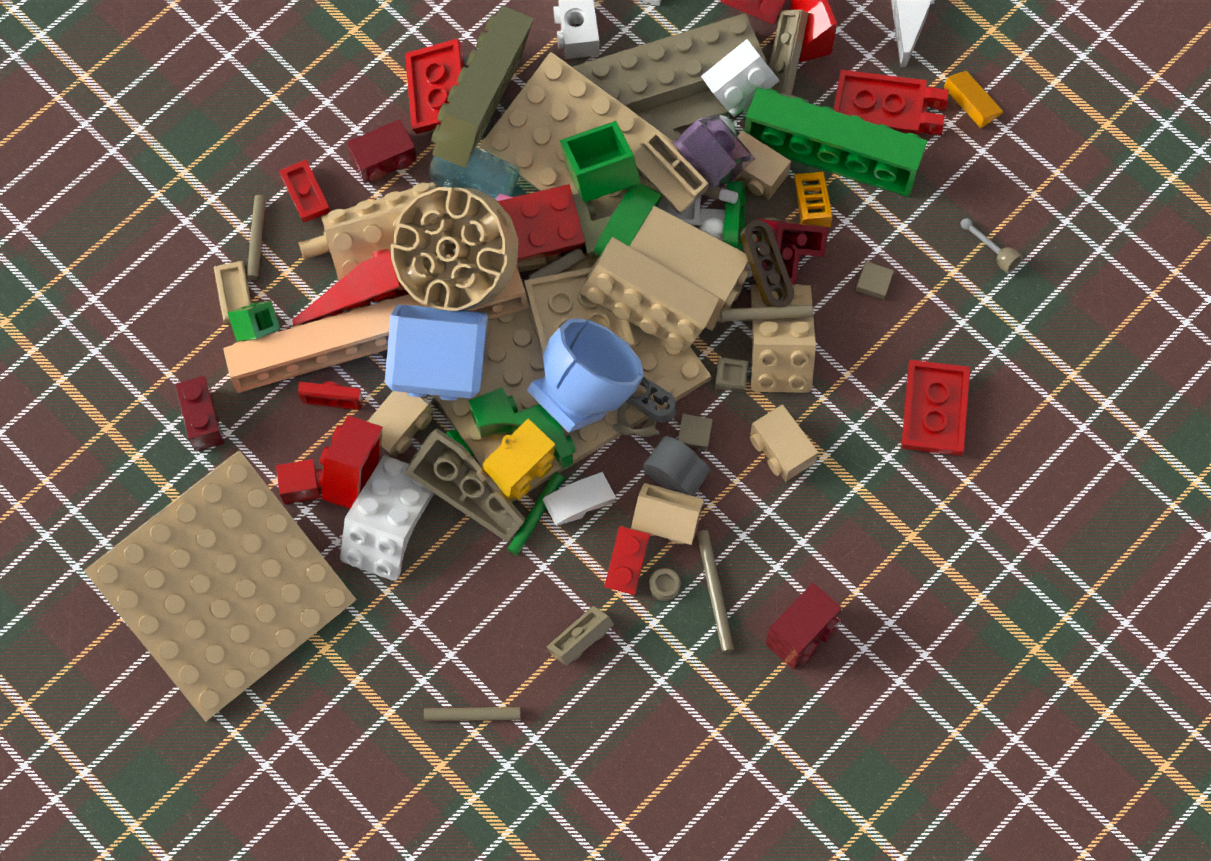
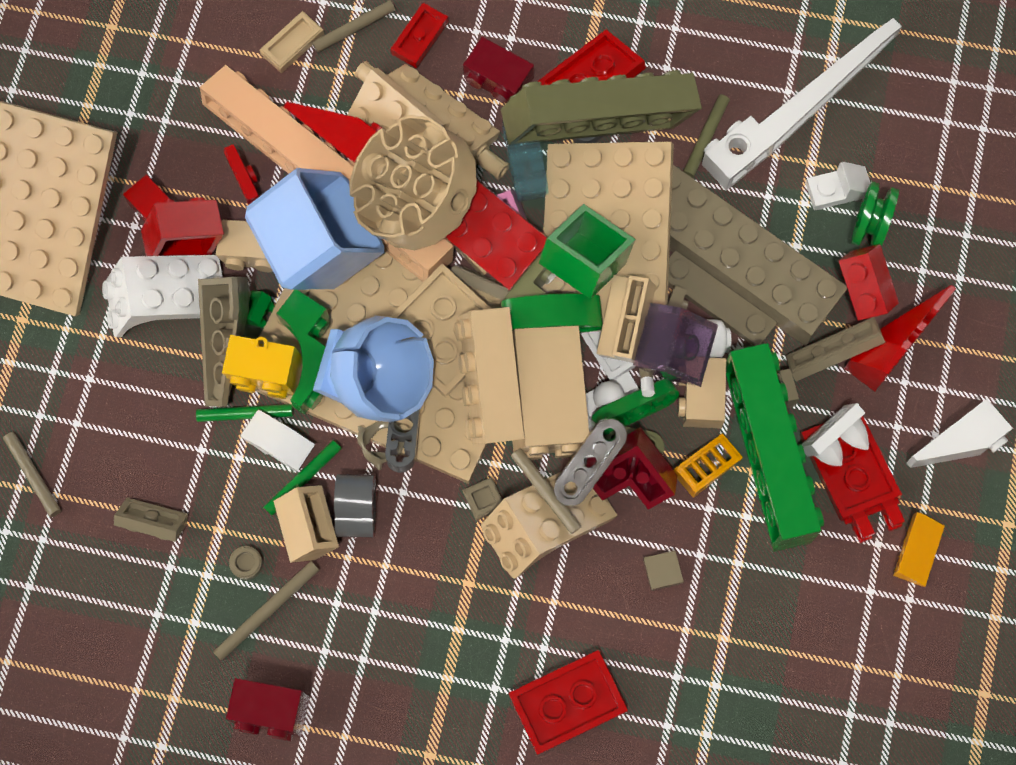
camera: 60 degrees right, 5 degrees up
(199, 413) = (160, 86): dark red brick -> none
(253, 321) = (265, 72): green brick -> none
(542, 35) = (706, 135): none -> olive bar
(620, 491) = (306, 473): none -> green bar
(627, 560) = (244, 516): red plate -> none
(695, 431) = (406, 500): dark tan tile -> none
(738, 76) = (773, 320): white brick -> none
(783, 443) = (441, 584): tan brick -> none
(847, 87) = (843, 424): none -> white tile
(1007, 257) = (768, 680): hinge -> none

